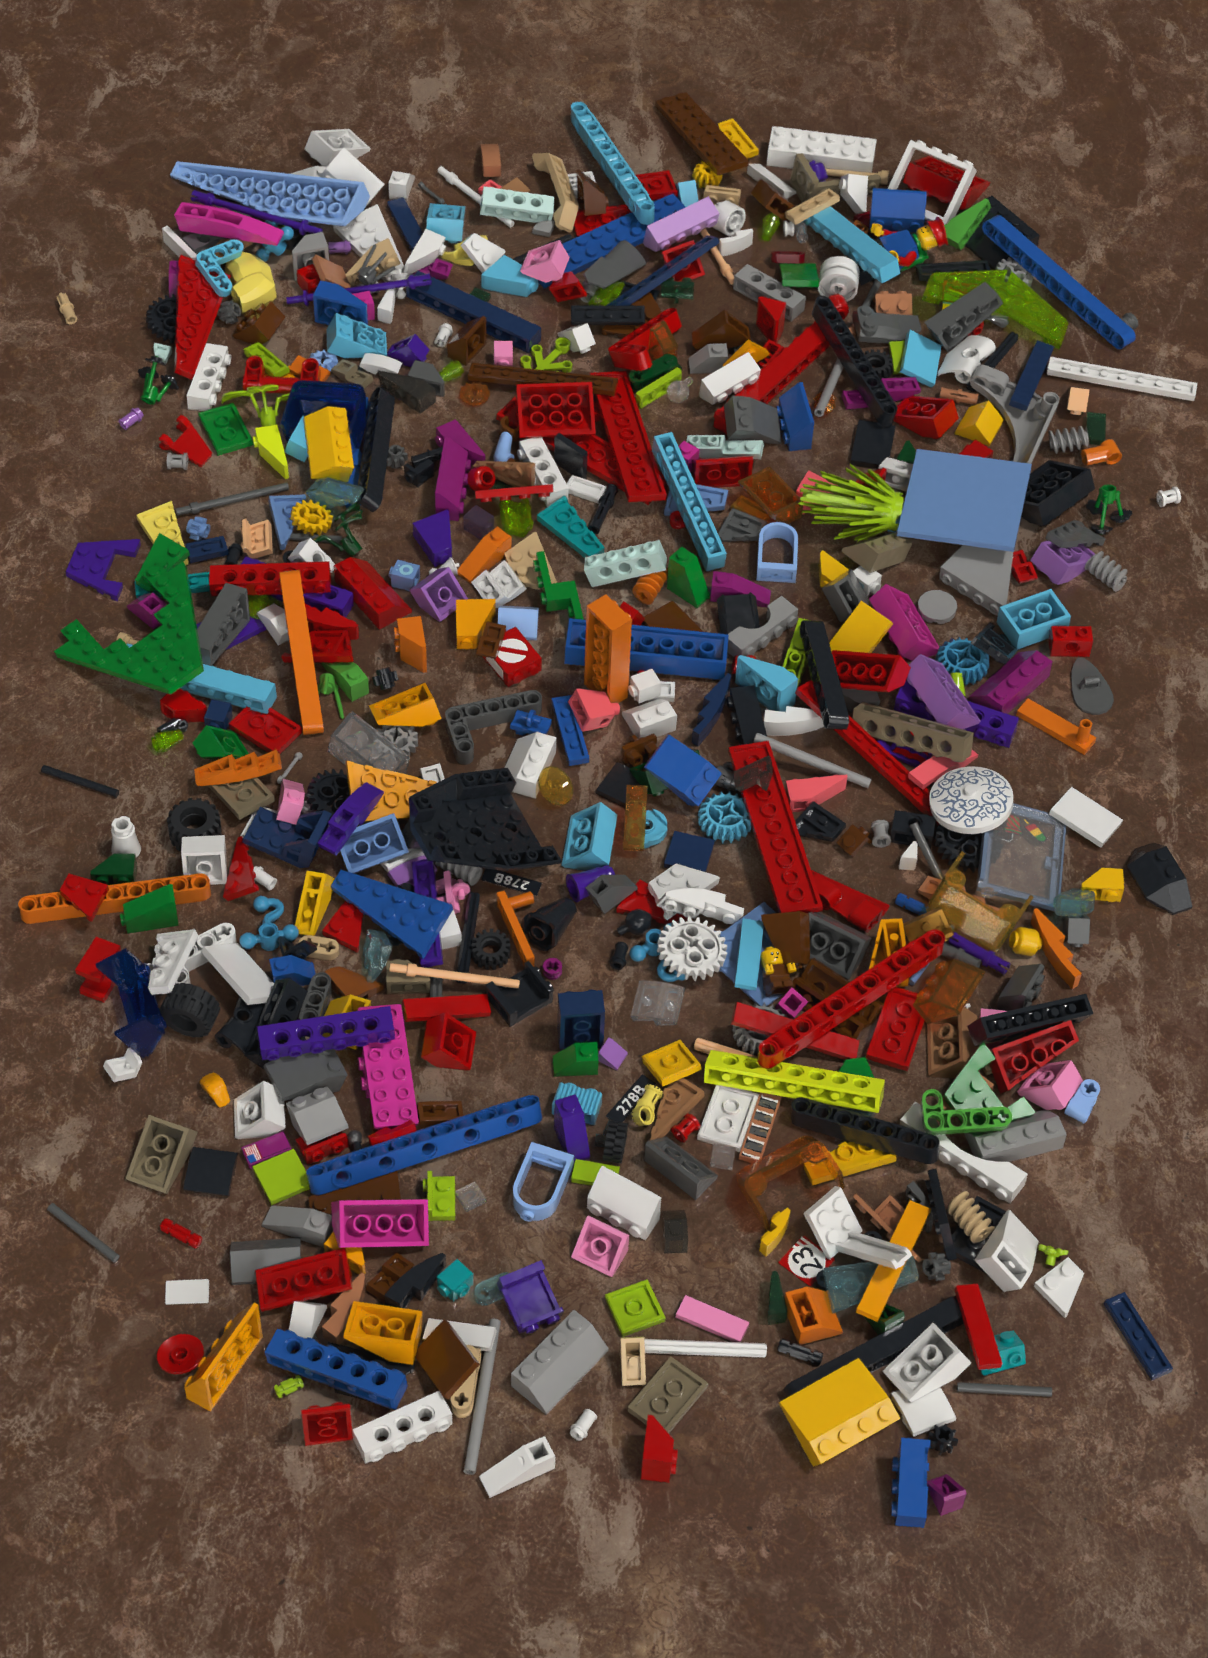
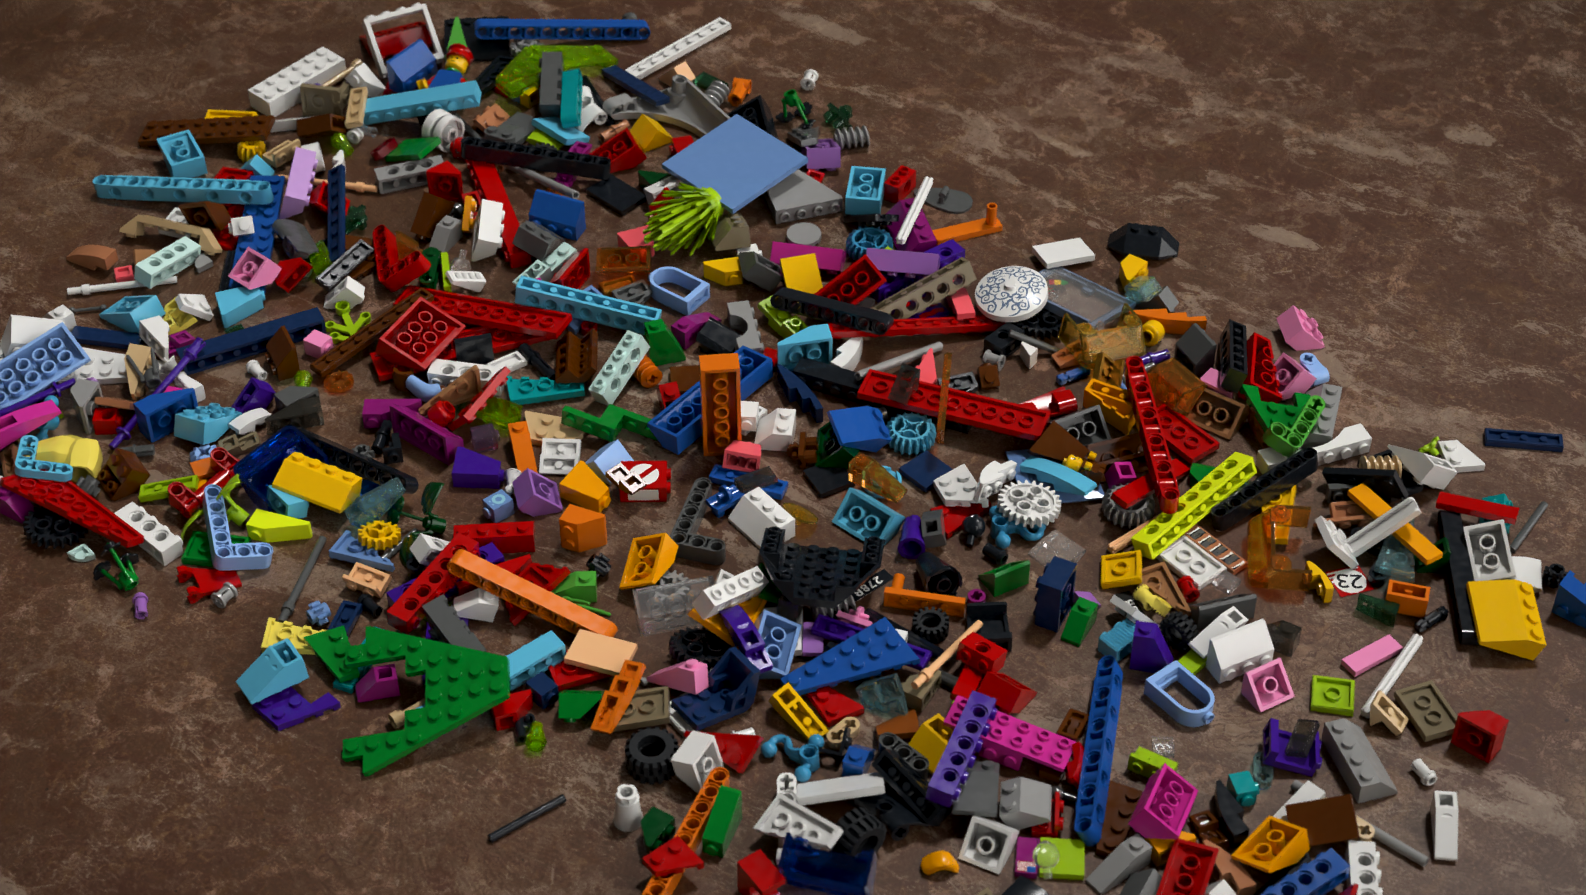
camera: 55 degrees left, 10 degrees down
(109, 536) = (273, 672): none -> medium azure slope
(230, 420) = (223, 553): none -> light blue beam
(262, 1160) = (1046, 856): none -> clear piece
(283, 731) = (599, 652): none -> light nougat tile
(292, 317) = (142, 450): none -> dark grey axle
(387, 776) = (730, 592): none -> white brick
(473, 989) = (981, 653): none -> red brick
(545, 1300) = (1302, 738): none -> clear smoke tile
(569, 733) = (759, 478): none -> clear smoke tile
(593, 976) = (1006, 577): none -> green slope
(596, 223) = (241, 226): none -> white bracket
(615, 1095) = (1132, 613): none -> white wing
(624, 529) = (576, 357): none -> reddish brown slope
(647, 1175) = (1226, 622): none -> white slope
(655, 137) = (182, 155): none -> medium azure slope
(670, 407) = (467, 279): none -> white slope
(766, 813) = (942, 414): none -> clear orange tile
(960, 340) = (571, 98): none -> teal beam
(1023, 666) = (914, 210): none -> white axle
(1134, 547) = (841, 115): none -> clear green hips
(1137, 1066) = (1300, 330): none -> bright pink slope

